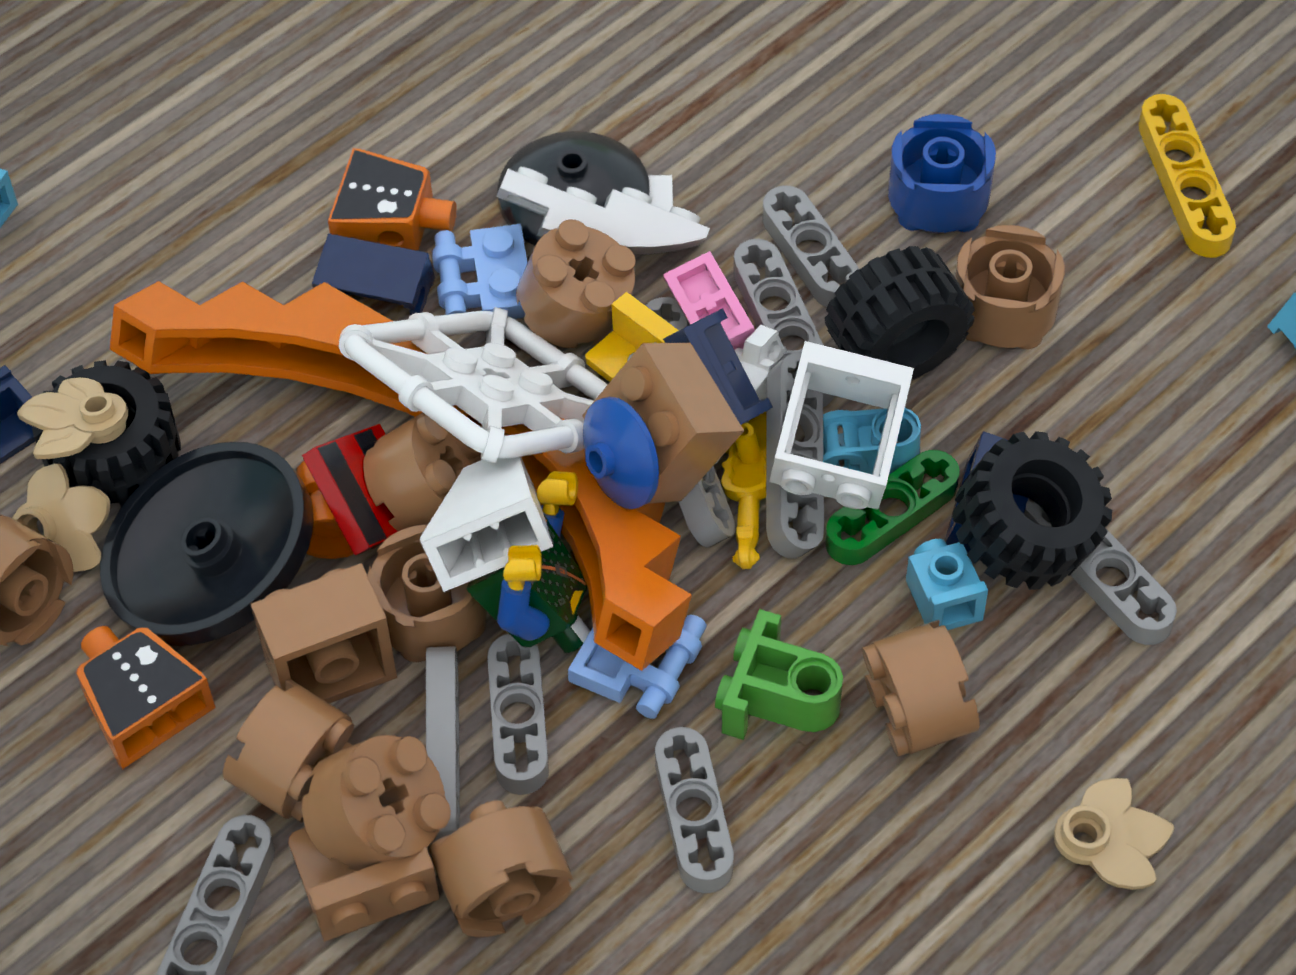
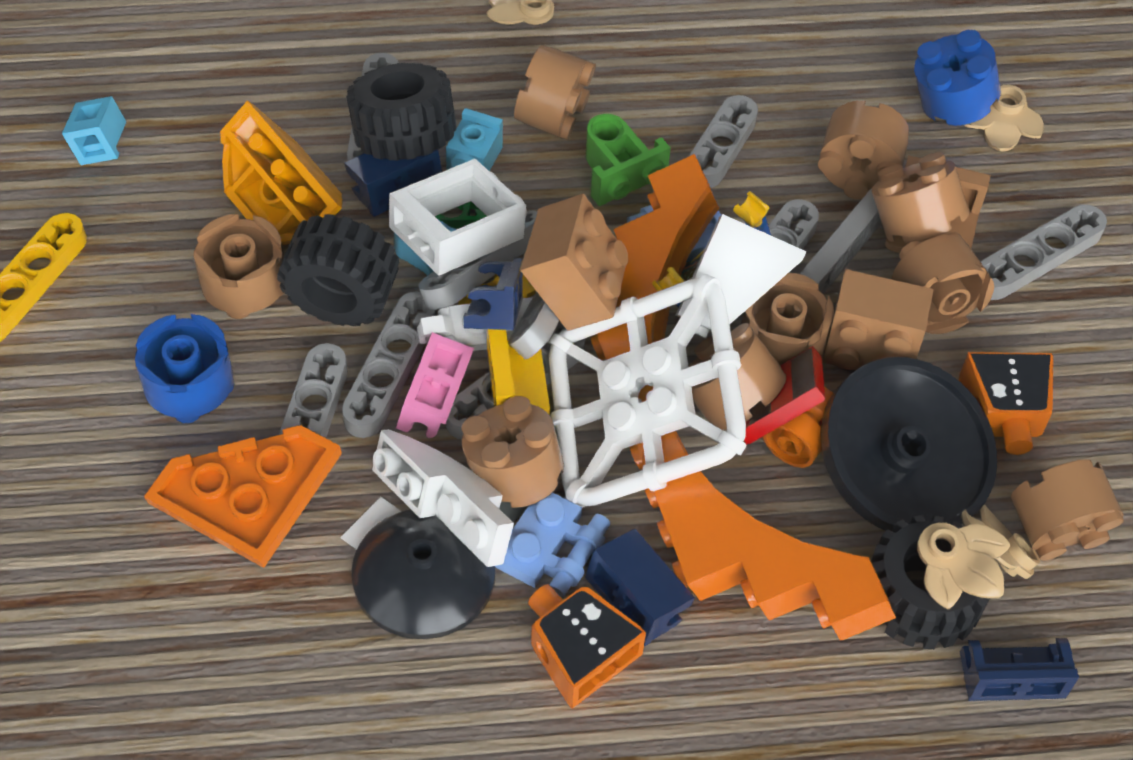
camera: 145 degrees left, 0 degrees up
(620, 452) = (625, 254): blue dish -> none
(777, 133) = (246, 489): none -> orange plate
(1072, 398) = (272, 174): none -> light orange wedge

